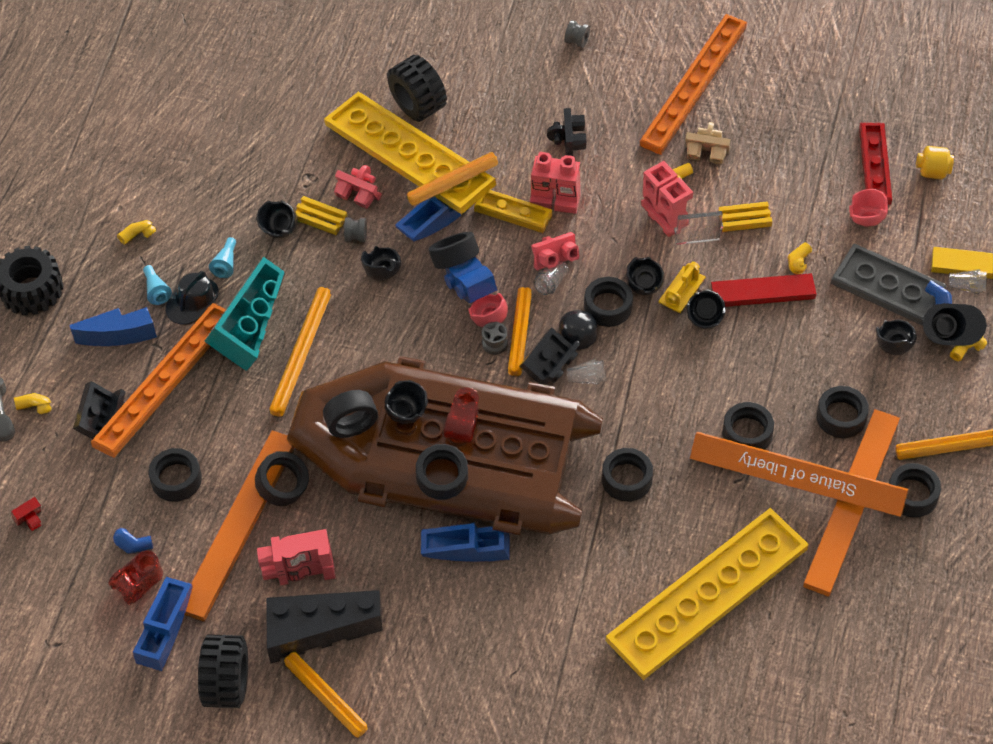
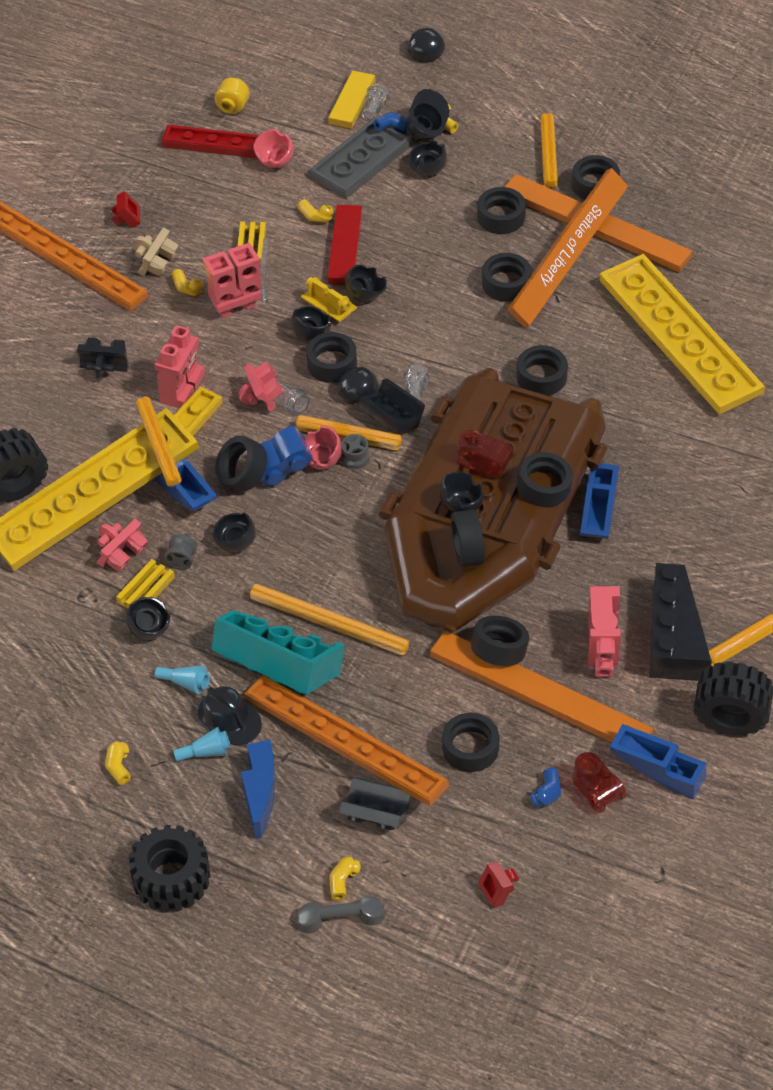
camera: 80 degrees left, 5 degrees down
(757, 114) = (126, 210): none -> red tile

